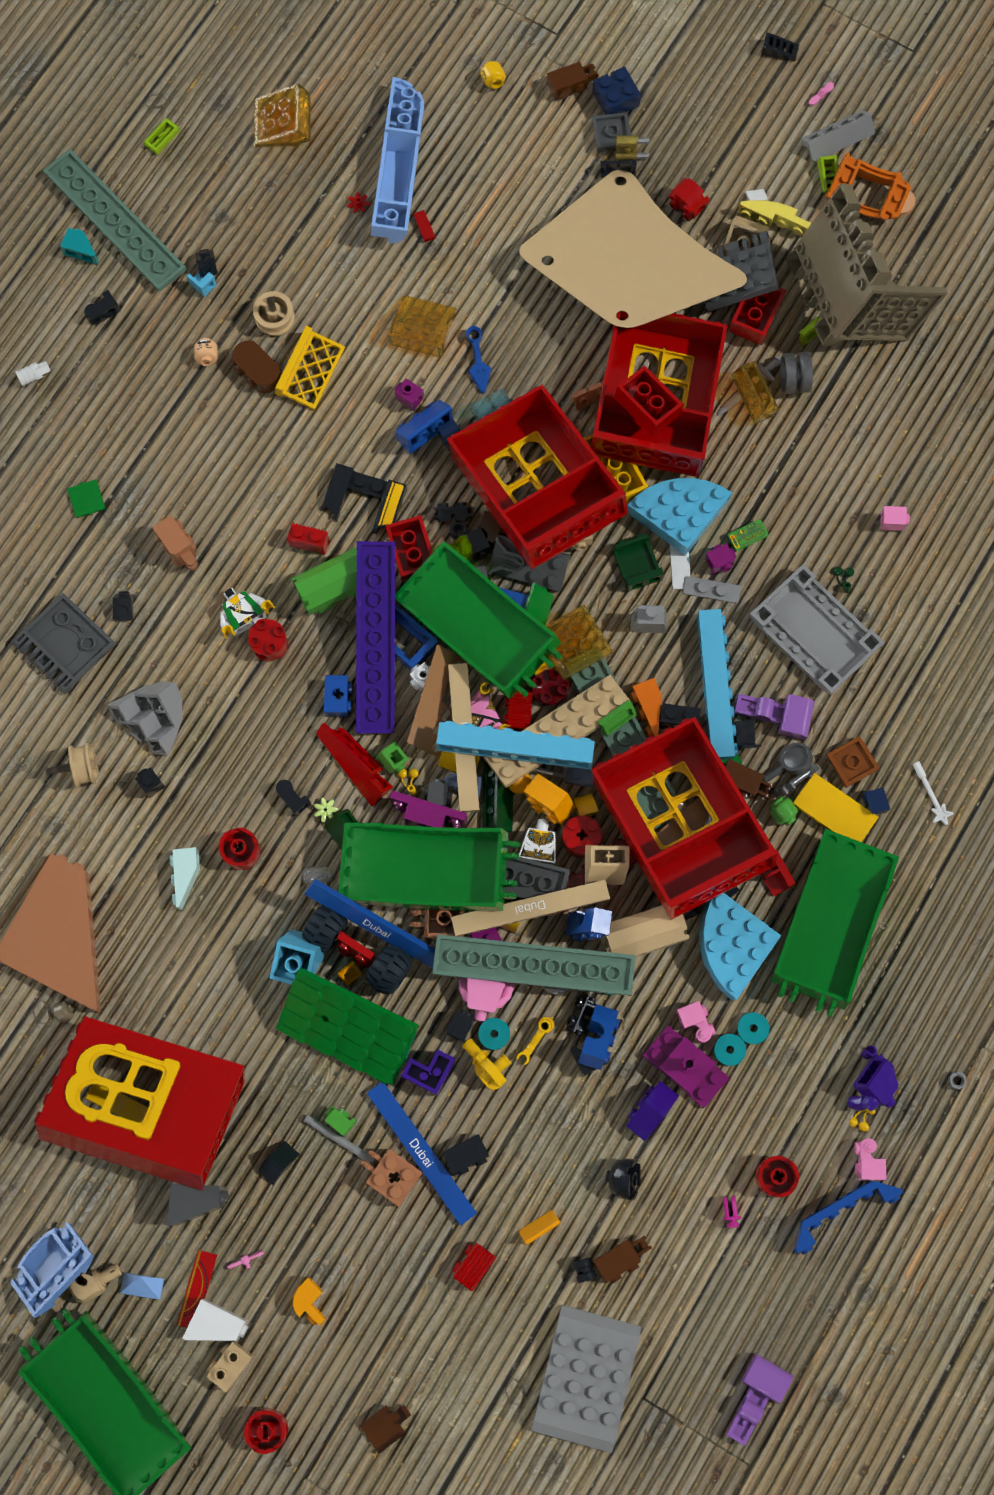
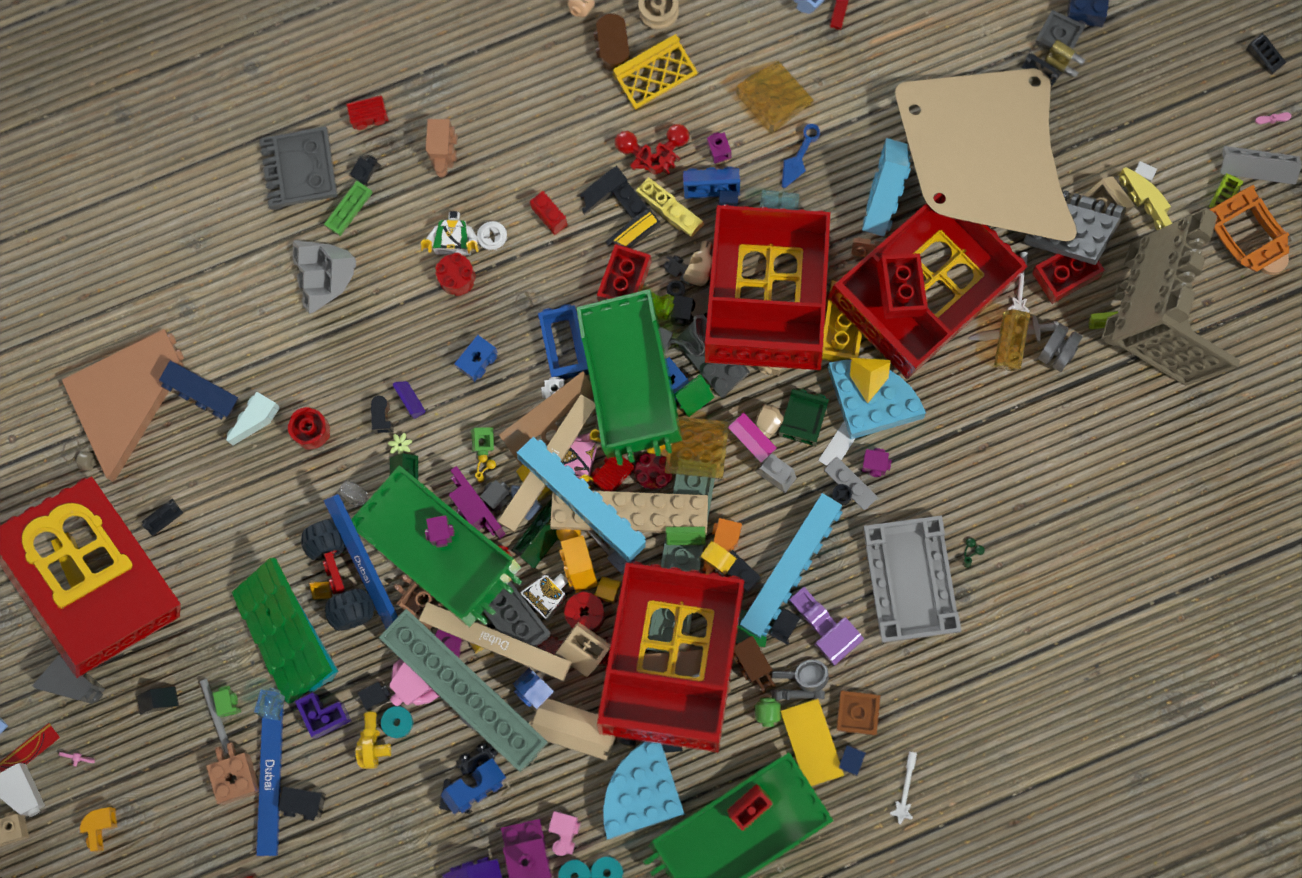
camera: 45 degrees right, 0 degrees up
(80, 764) = (236, 274): tan wheel -> none
(86, 498) = (401, 62): green piece -> none
(90, 558) = (367, 112): none -> red brick
(120, 883) = (198, 389): none -> dark blue brick
(133, 648) = (348, 208): none -> bright green plate
(149, 782) = (280, 325): black brick -> none
(167, 1010) = (162, 517): none -> black hinge
(273, 581) = (484, 232): none -> white gear
(293, 954) = (285, 545): medium azure slope -> none
(305, 768) = (409, 399): none -> dark purple slope
(327, 583) = (542, 262): bright green brick -> none
(356, 763) = (451, 423): red wedge -> none
(367, 407) = (676, 136): none -> red piece
(374, 1096) = (269, 704): none -> clear light blue brick
(375, 637) = (537, 331): dark purple plate -> none
(405, 470) = (669, 208): none -> light yellow slope
(419, 852) = (439, 531): none -> magenta brick
(467, 497) = (700, 265): none -> tan piece
(537, 1037) = (435, 747): yellow brick -> none
(570, 335) = (887, 187): none -> medium azure brick
(612, 604) = (752, 437): none -> dark pink piece
(614, 587) = (769, 420): none -> tan piece
(658, 716) = (718, 557): none -> yellow brick
(668, 492) = (869, 375): none -> yellow slope
(688, 198) = (1080, 135): red brick -> none
(714, 598) = (842, 491): none -> black wheel
(735, 362) = (1018, 303): none -> white piece
(747, 535) = (915, 458): bright green tile -> none
(778, 878) = (721, 763): red panel -> none
(828, 892) = (749, 807): none -> red brick
(894, 518) = (1052, 531): bright pink brick -> none

